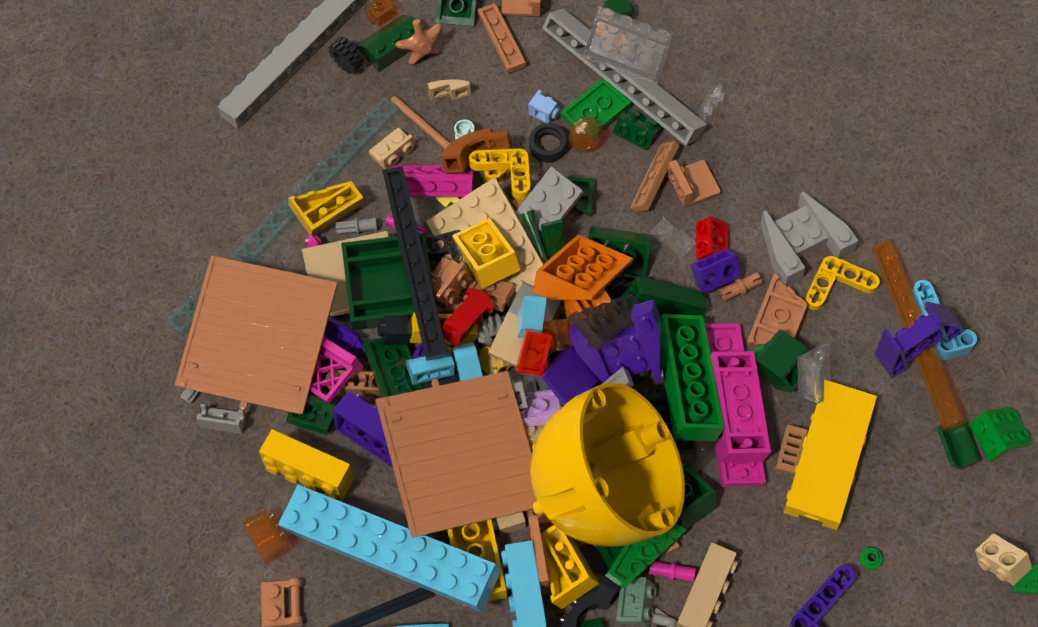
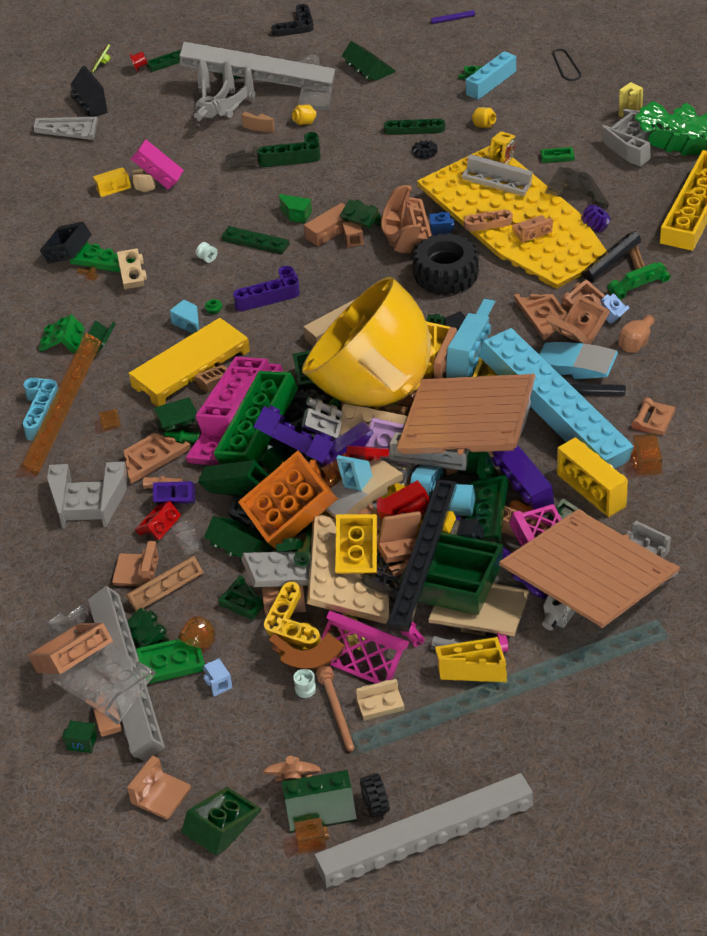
camera: 150 degrees left, 20 degrees down
(456, 89) = (287, 728): tan slope -> none
(501, 38) = (208, 760): nougat plate -> none
(547, 129) = (235, 635): black tyre -> none
(605, 320) = (297, 440): clear smoke wing -> none
(670, 23) = (70, 648): none -> nougat window
(812, 370) = (169, 392): clear bracket -> none
(832, 275) = (86, 468): yellow beam -> none
(855, 341) = (109, 419): none -> clear orange plate
(883, 521) = (185, 316): none -> medium azure slope
(911, 342) = (74, 369): dark purple wedge -> none

